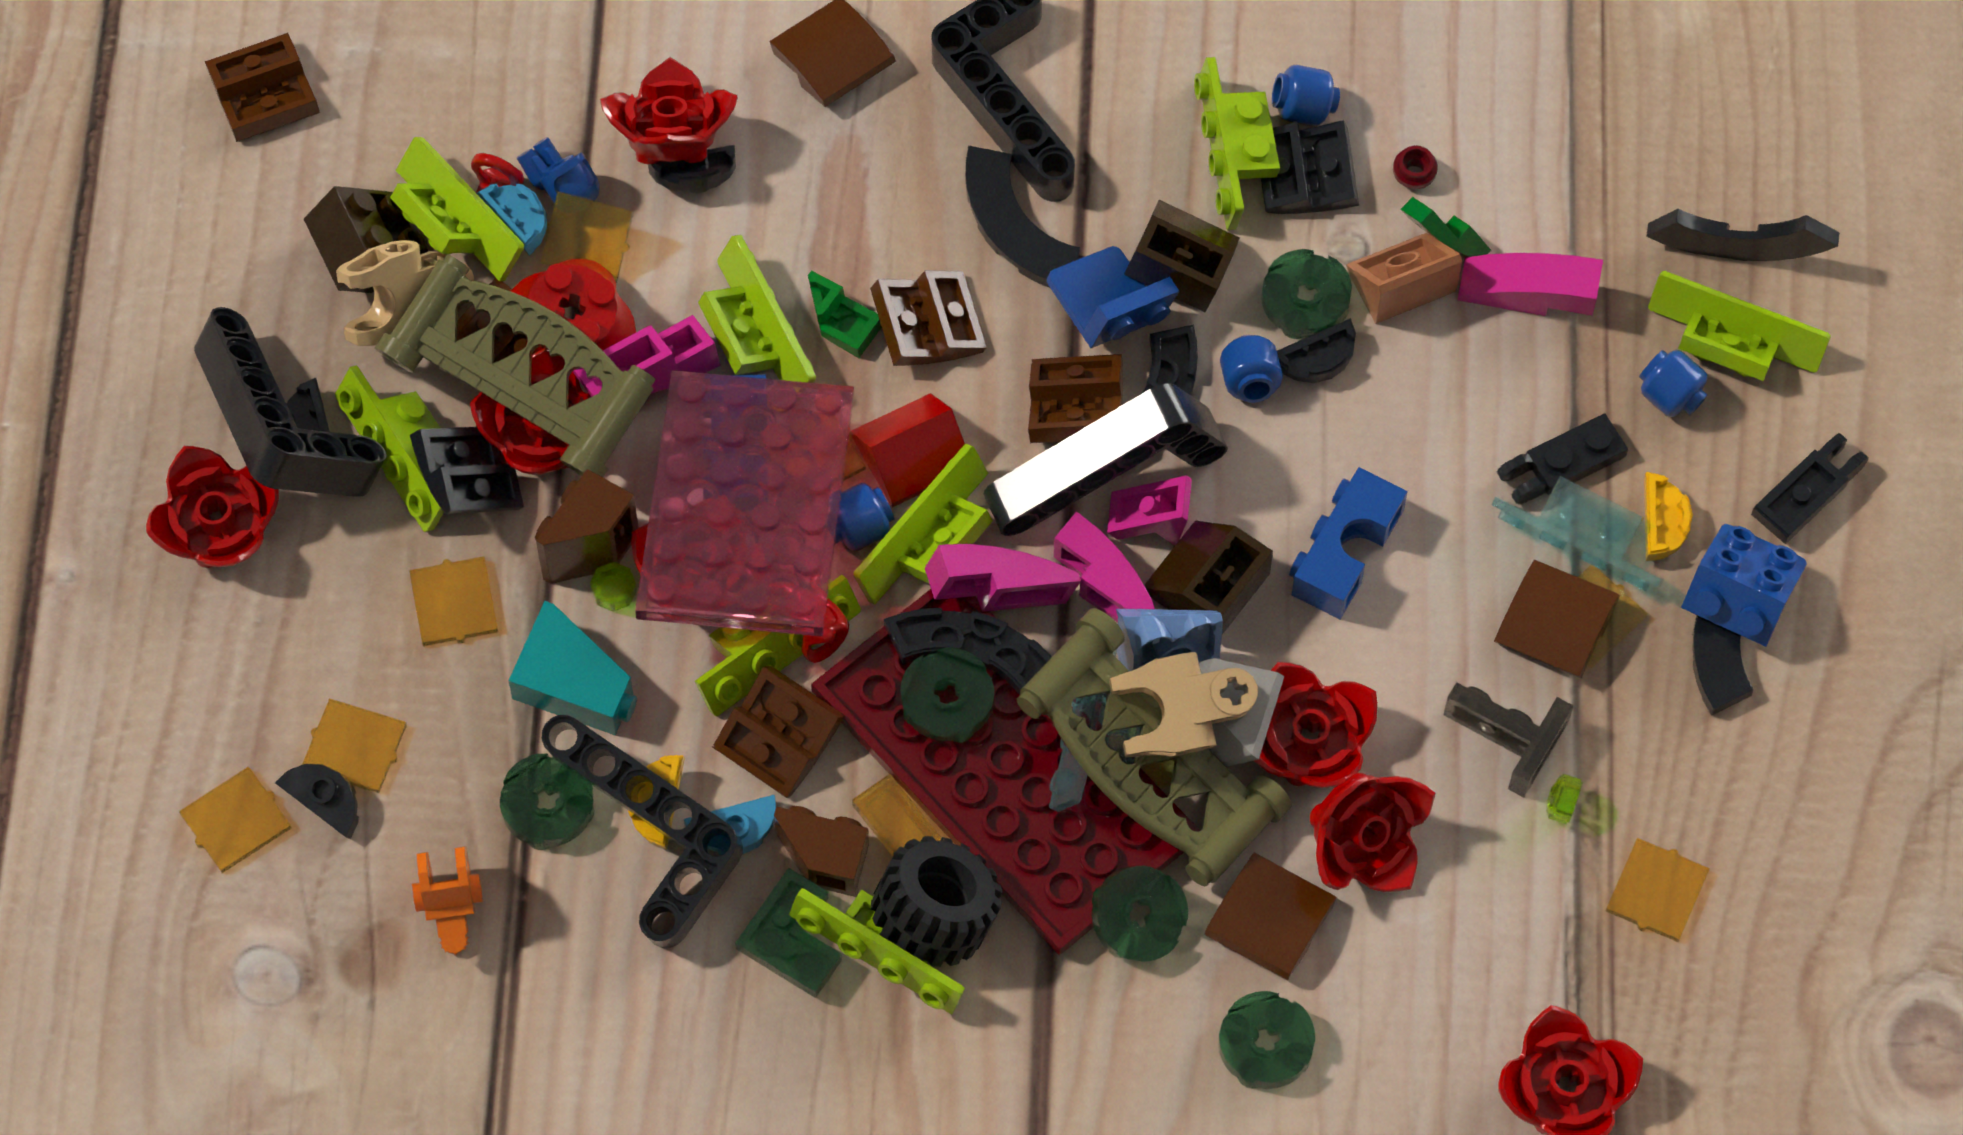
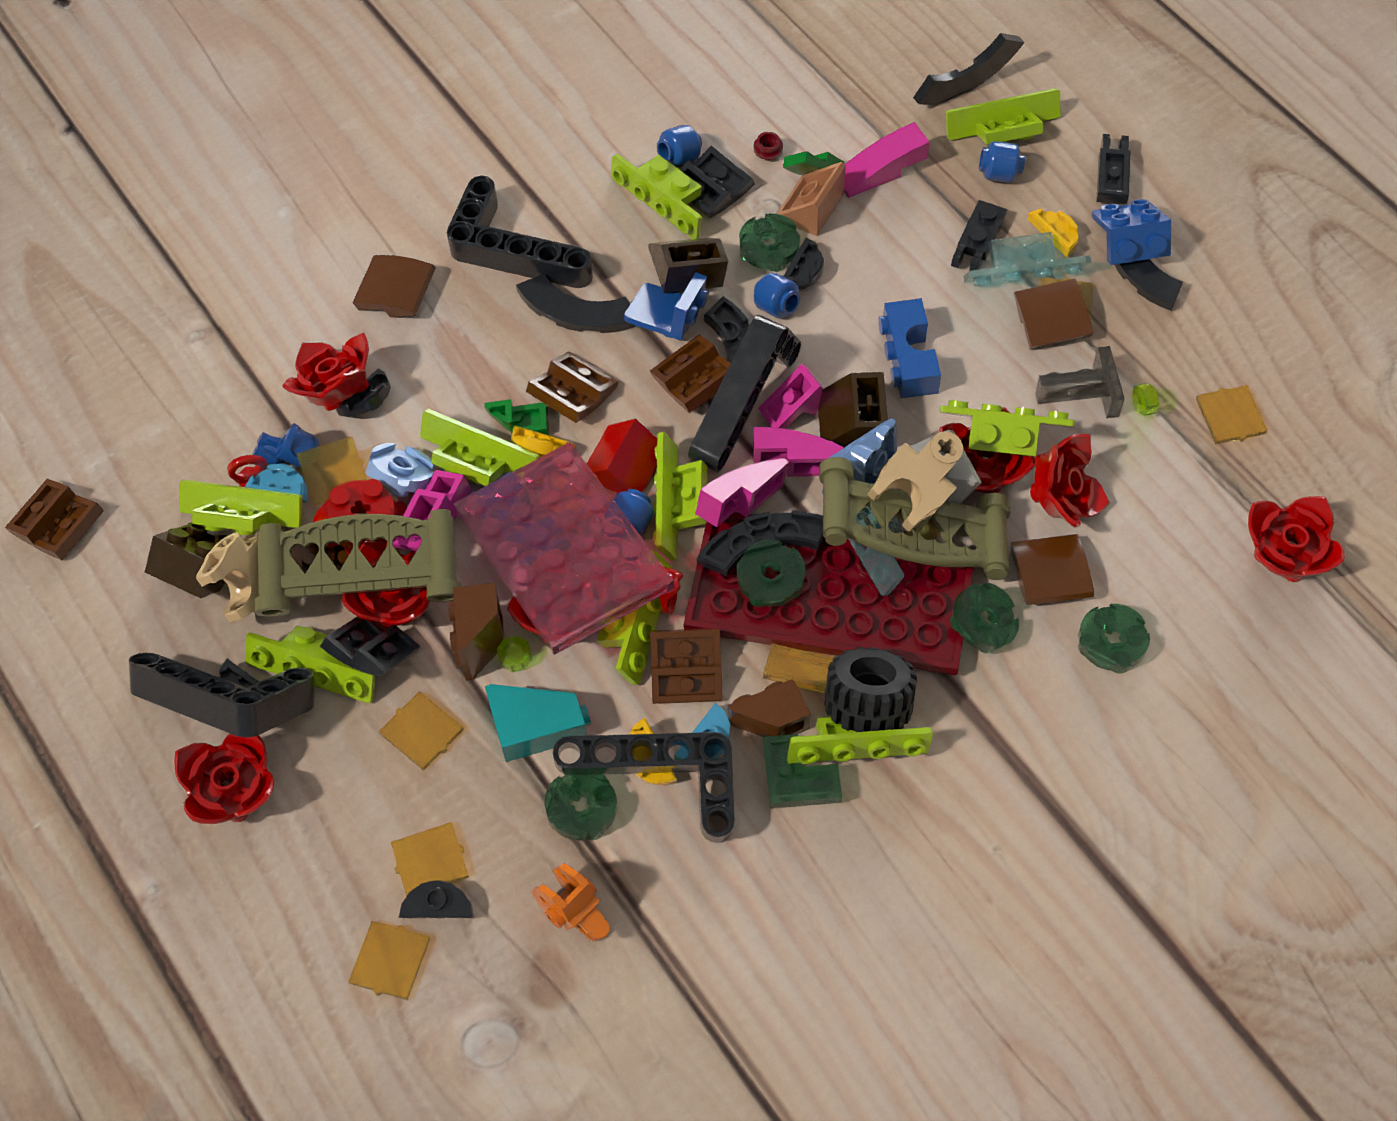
camera: 35 degrees left, 5 degrees down
(641, 297) = (400, 469): none -> light blue plate
(833, 363) = (535, 441): none -> yellow plate
(1345, 718) = (1005, 431): none -> lime bracket

